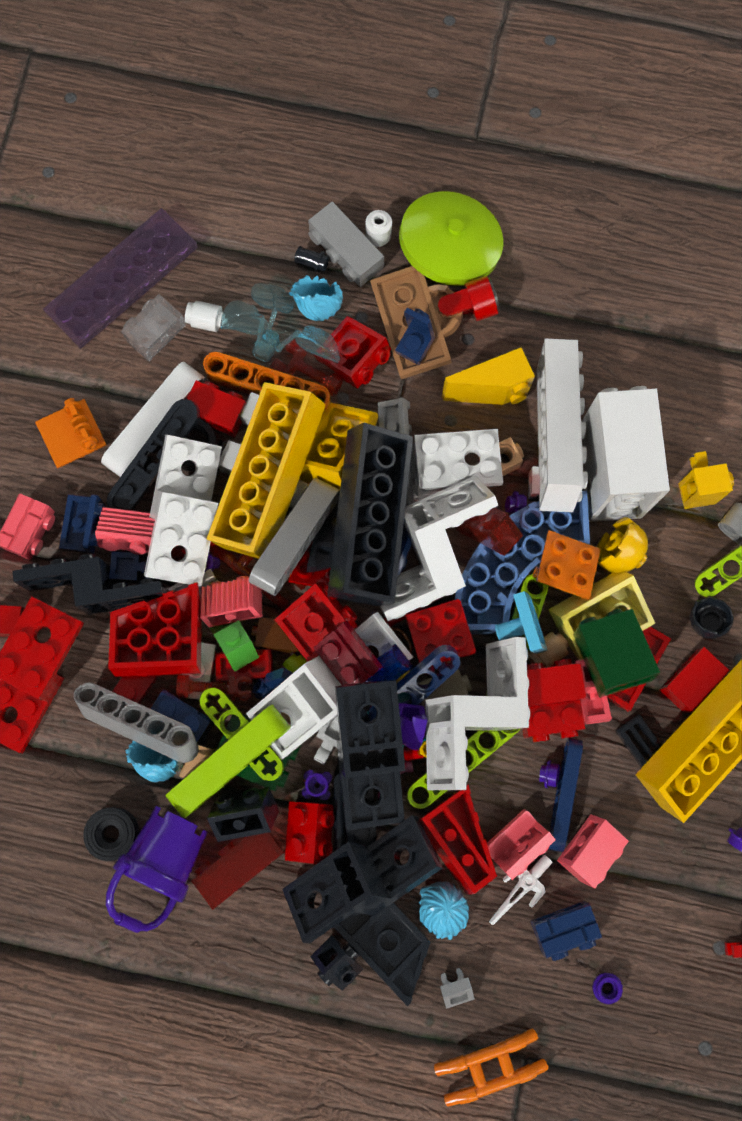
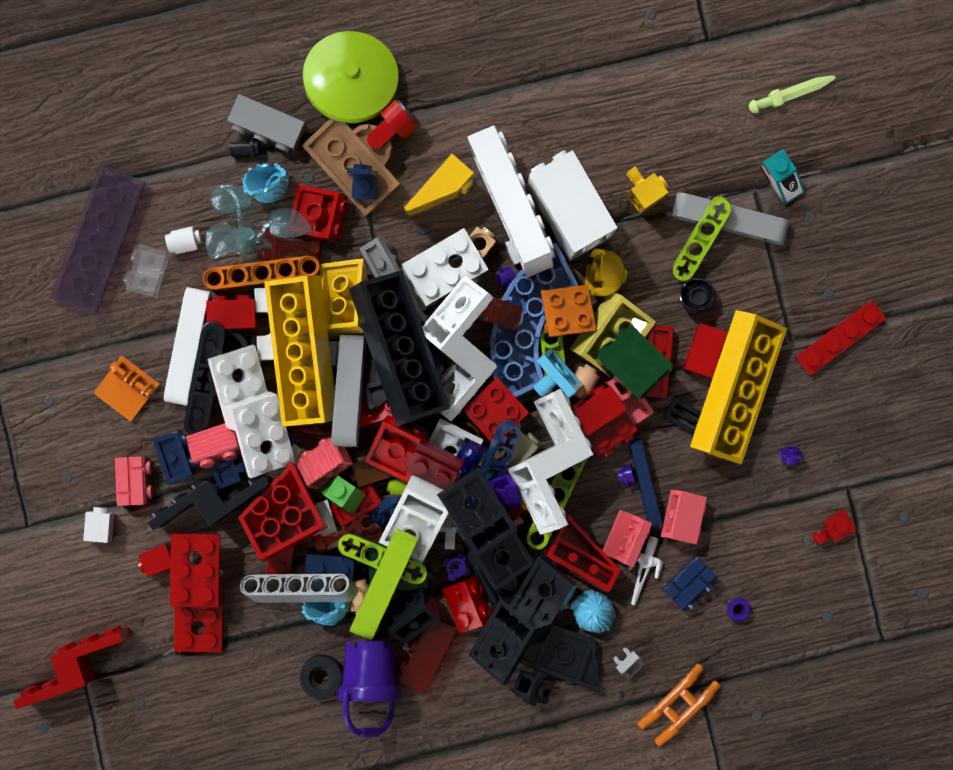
camera: 25 degrees left, 10 degrees up
(378, 228) = (287, 104): white brick -> none

